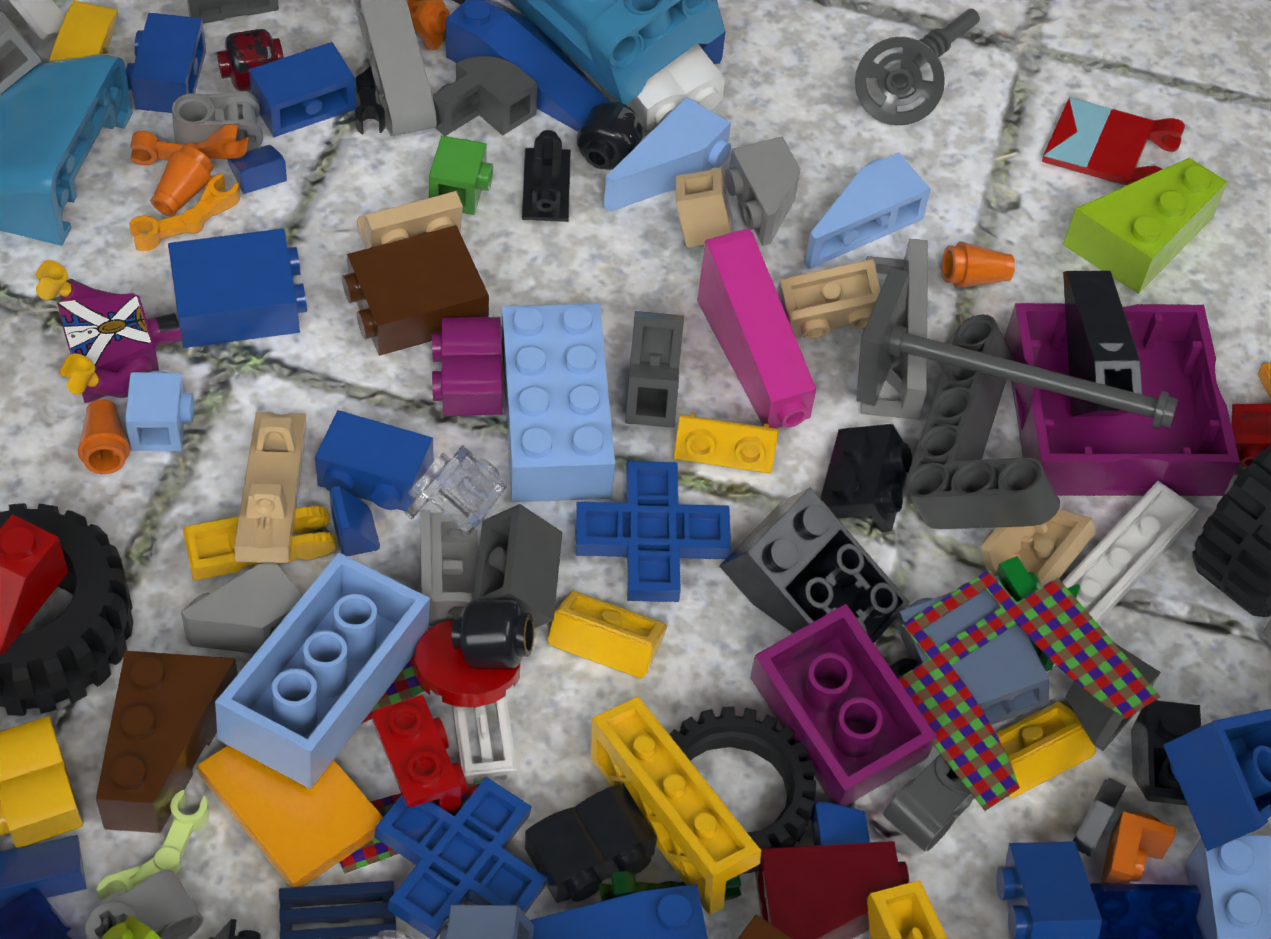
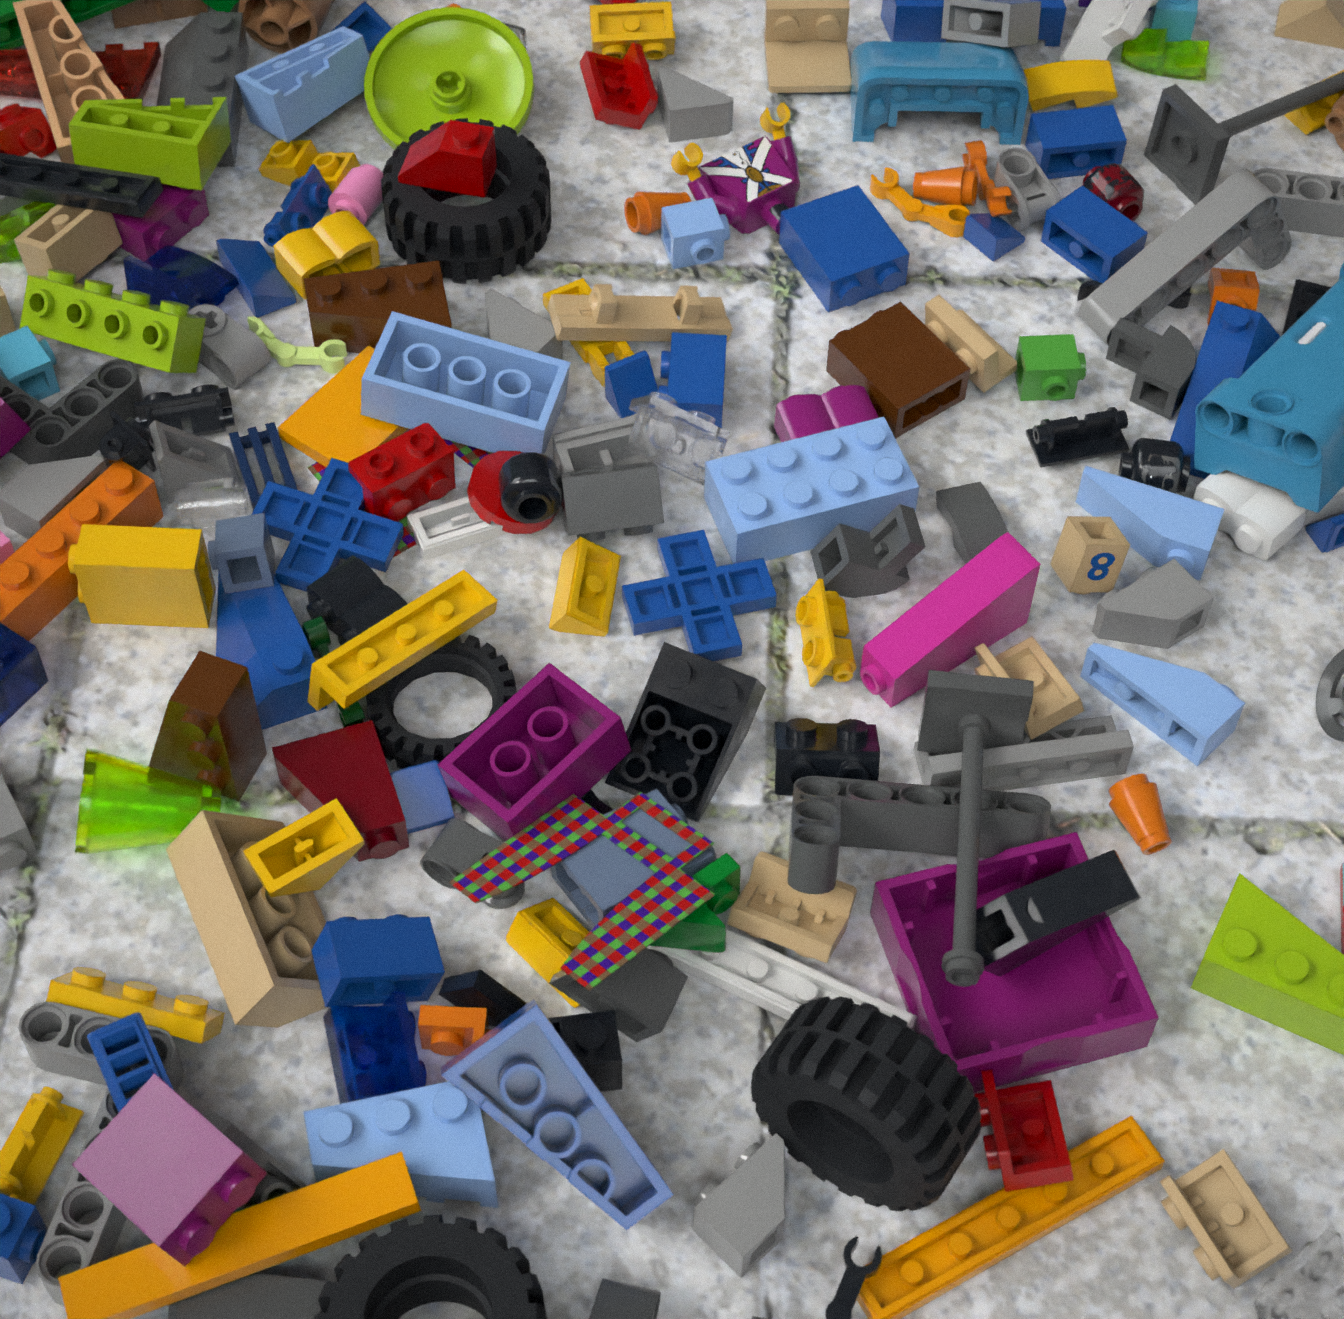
camera: 80 degrees right, 0 degrees up
(635, 284) = (972, 517): none -> dark grey slope

